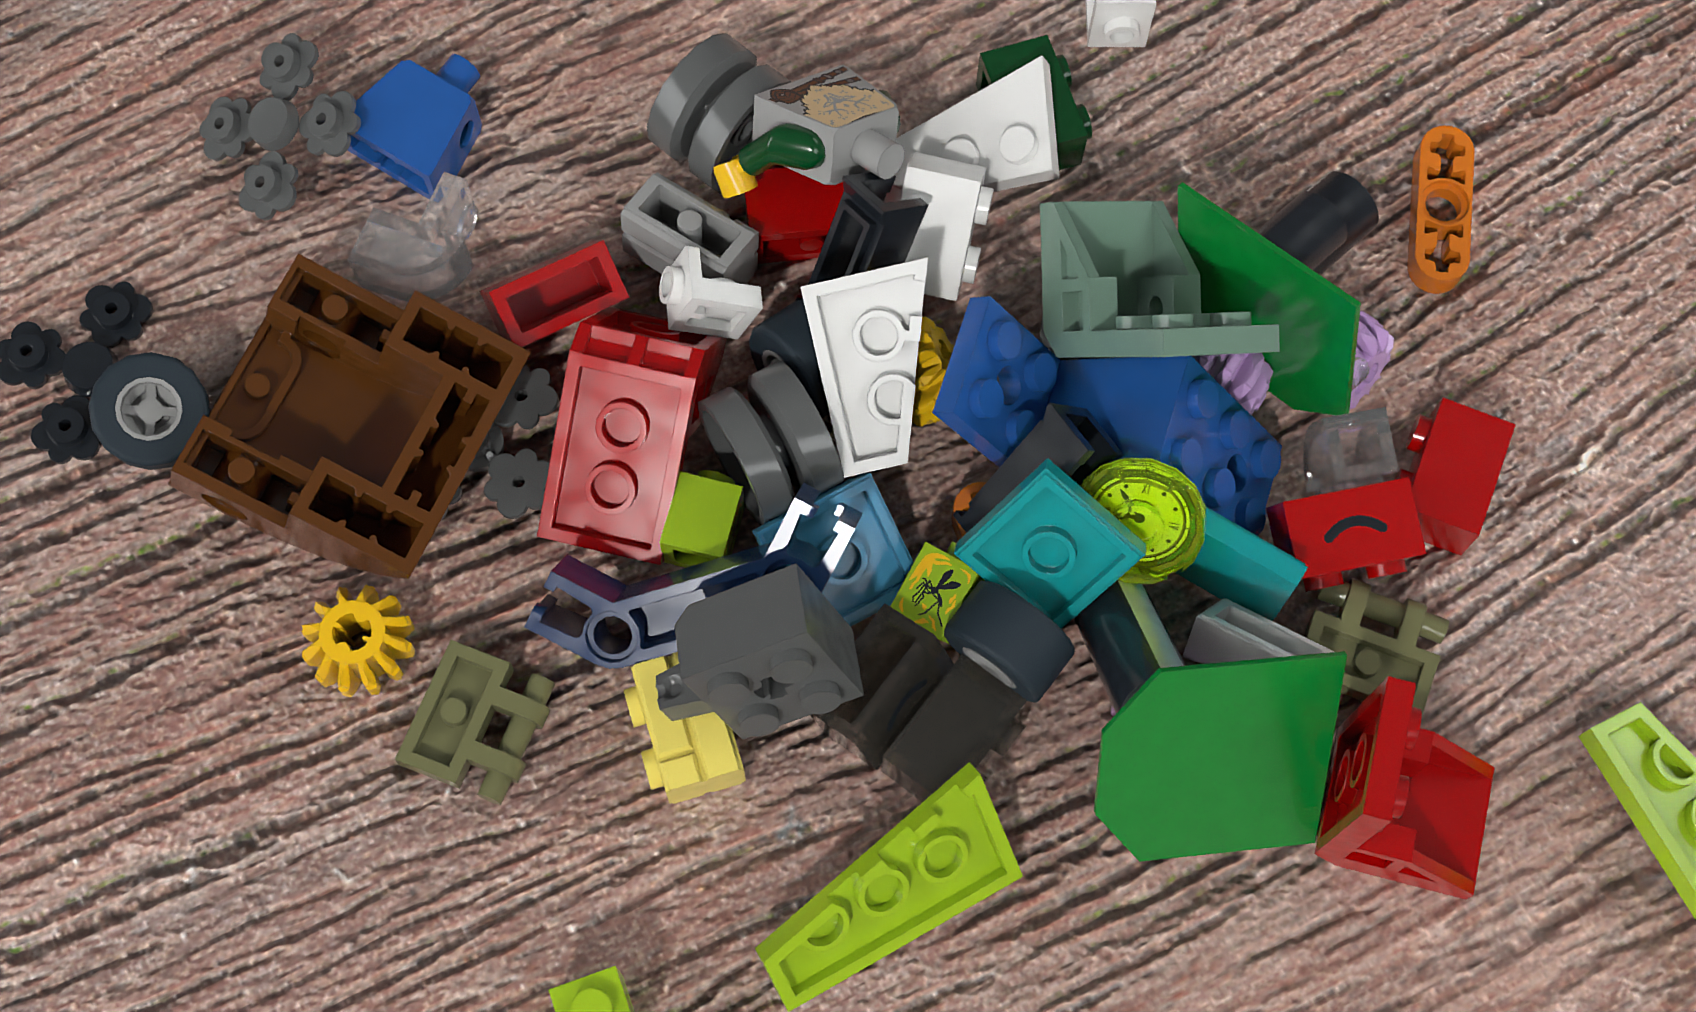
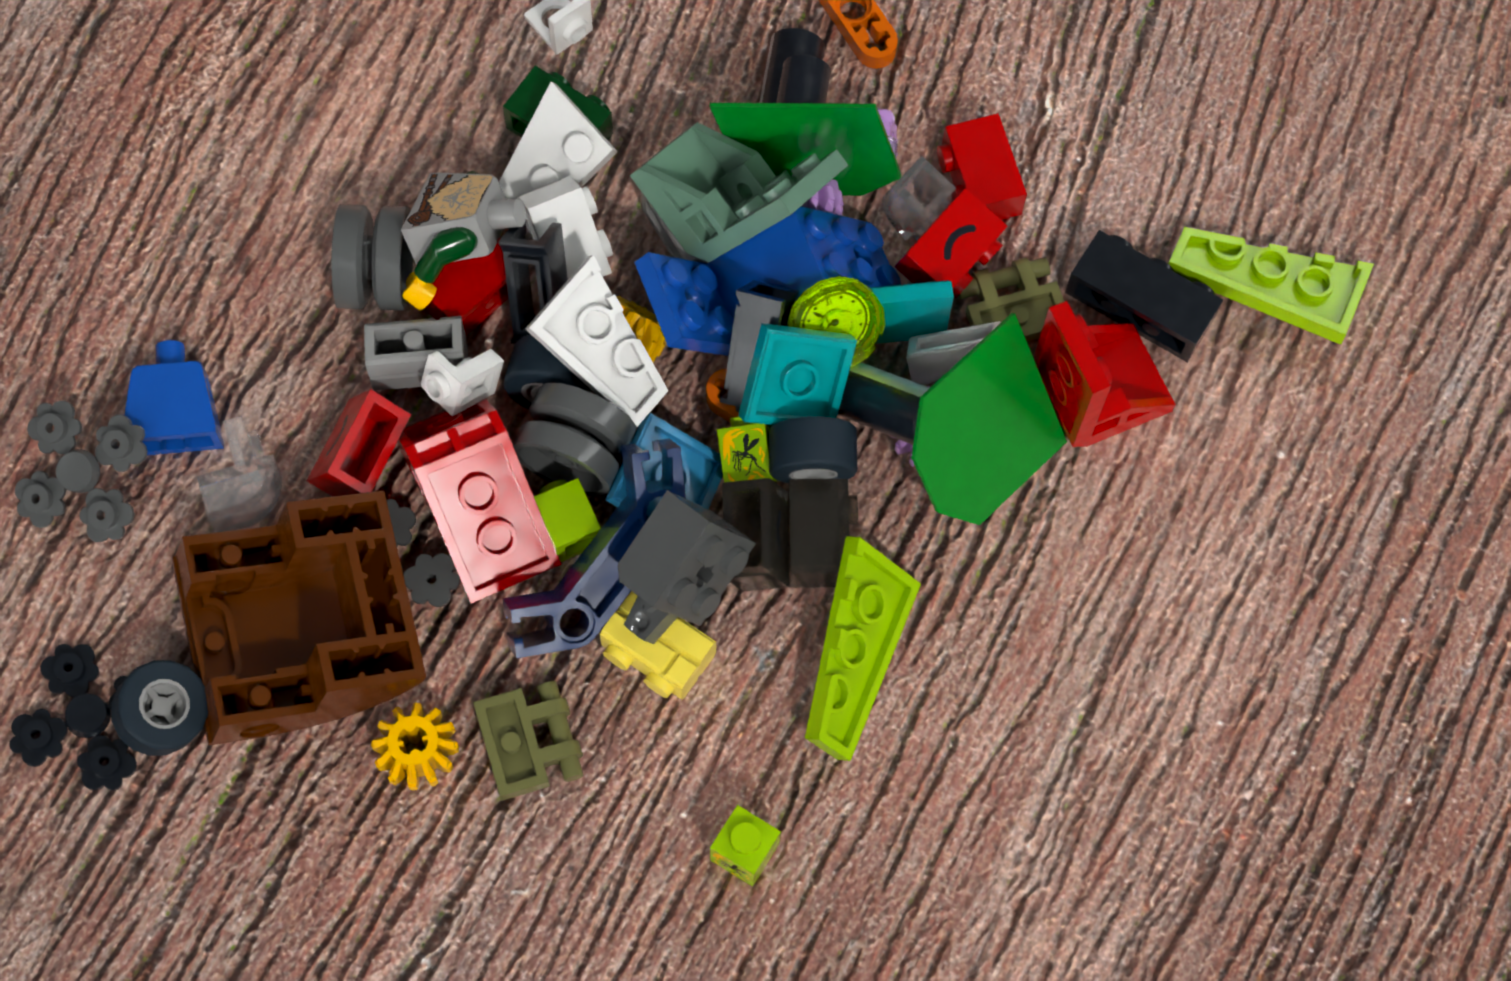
camera: 40 degrees left, 0 degrees up
(1534, 743) = (1143, 293): none -> black brick

